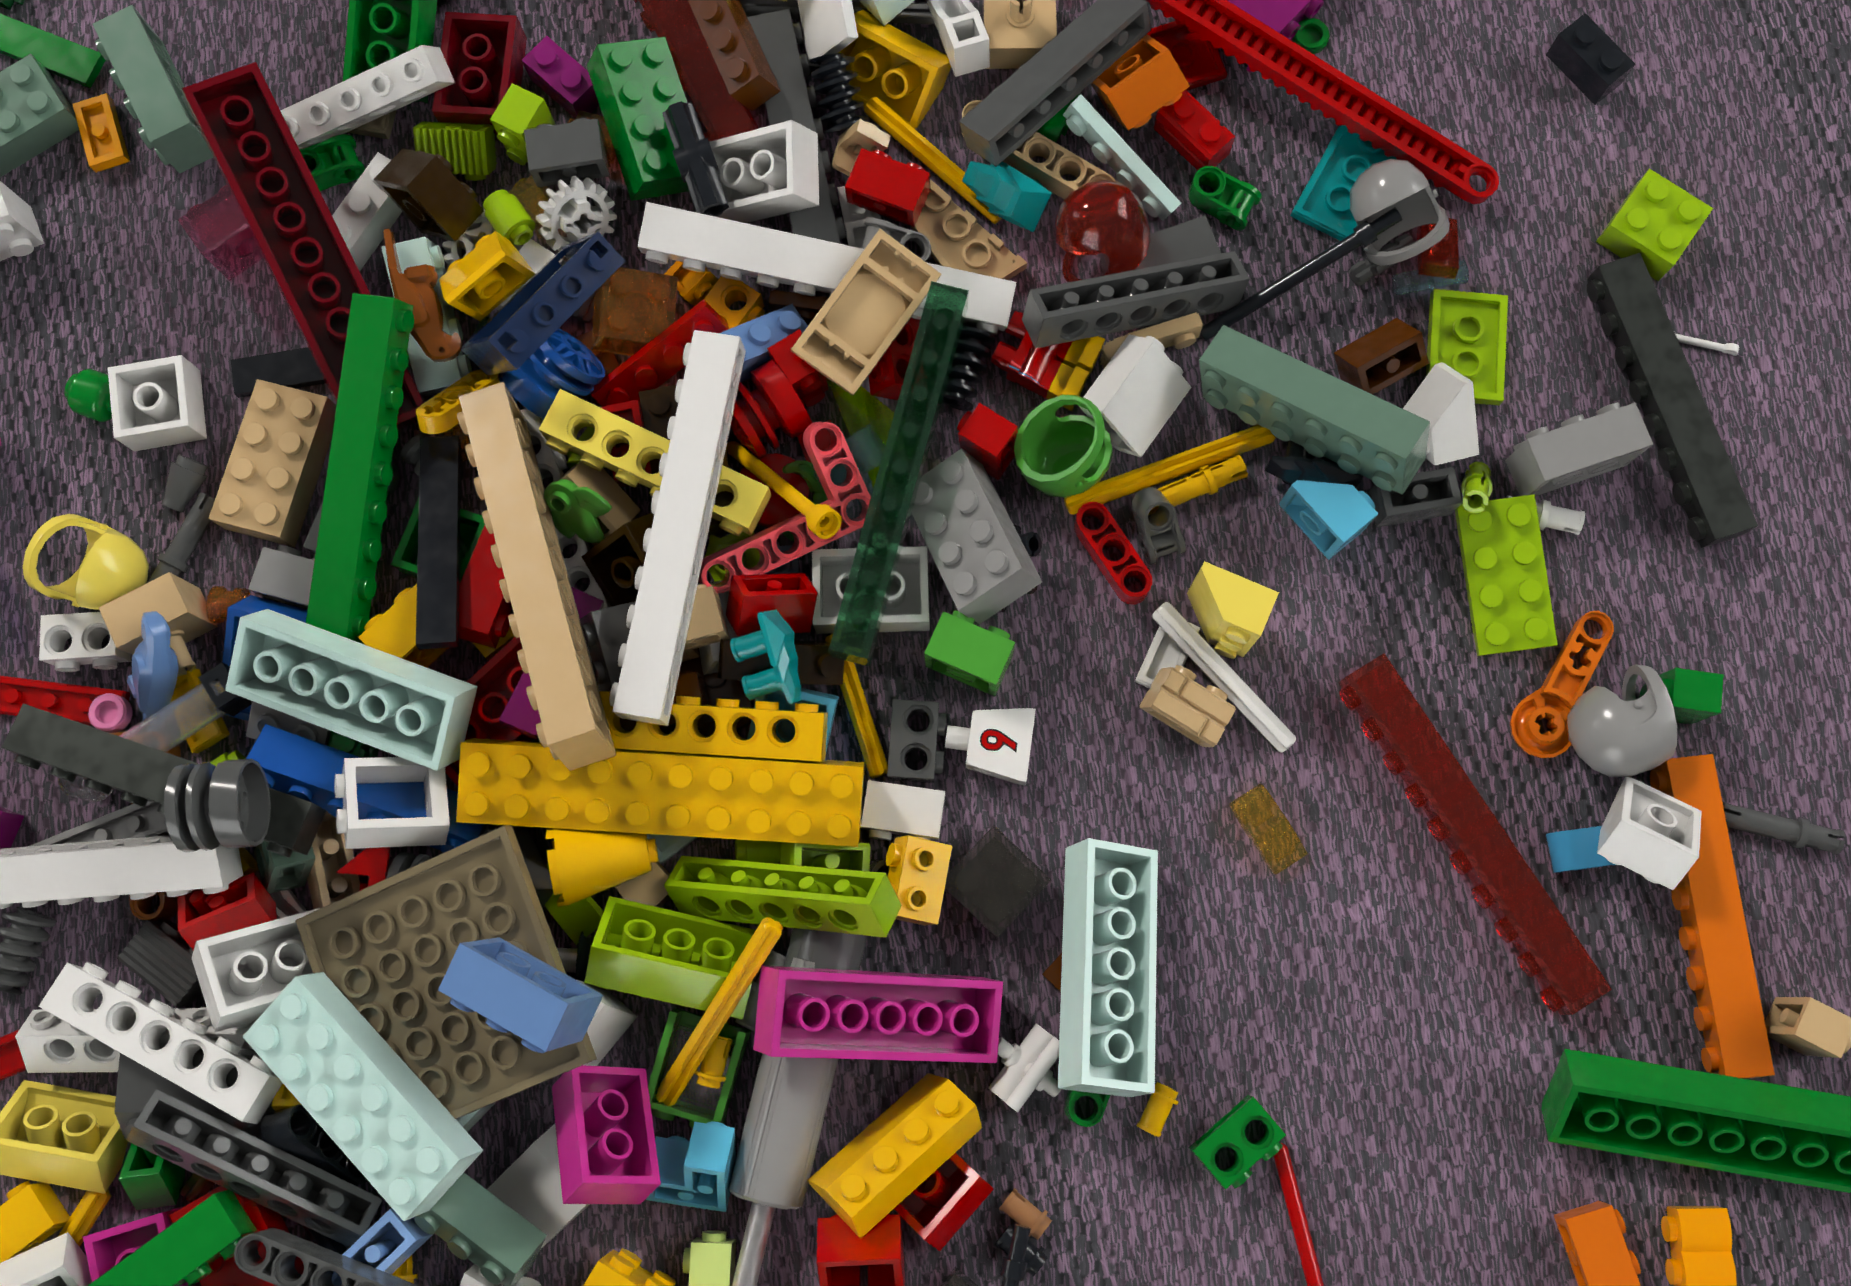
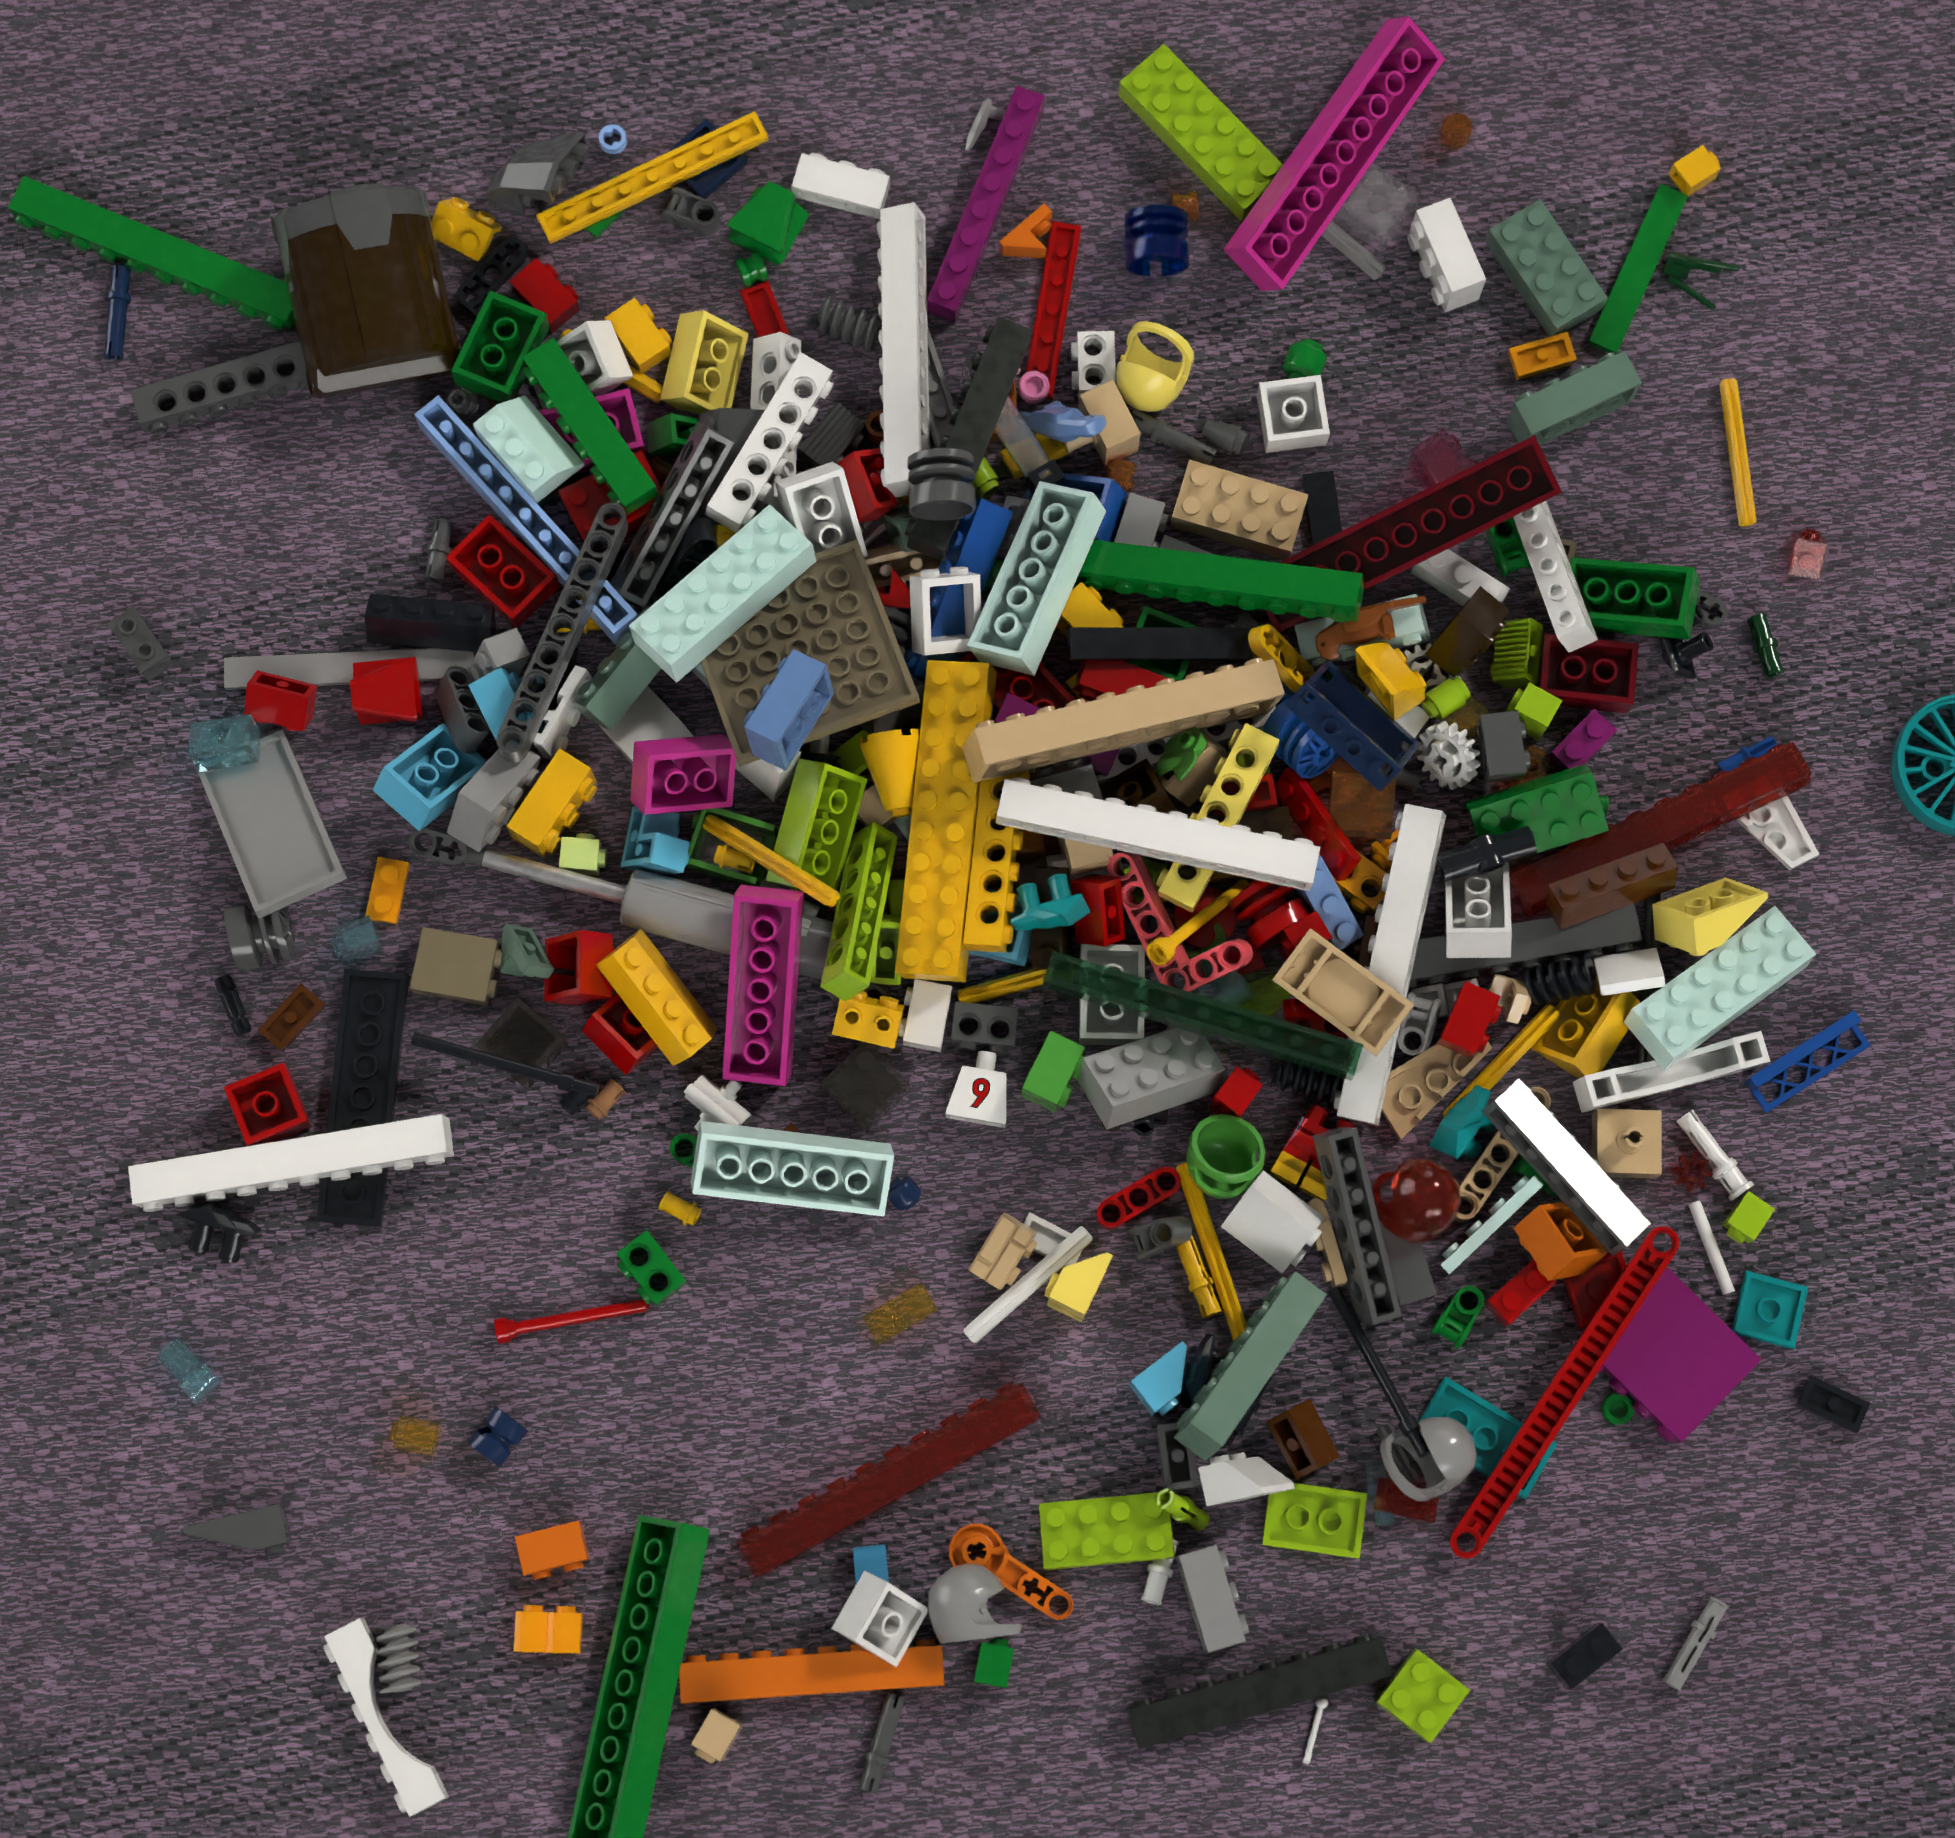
camera: 85 degrees right, 0 degrees up
(1120, 829) = (904, 1193): none -> dark blue piece

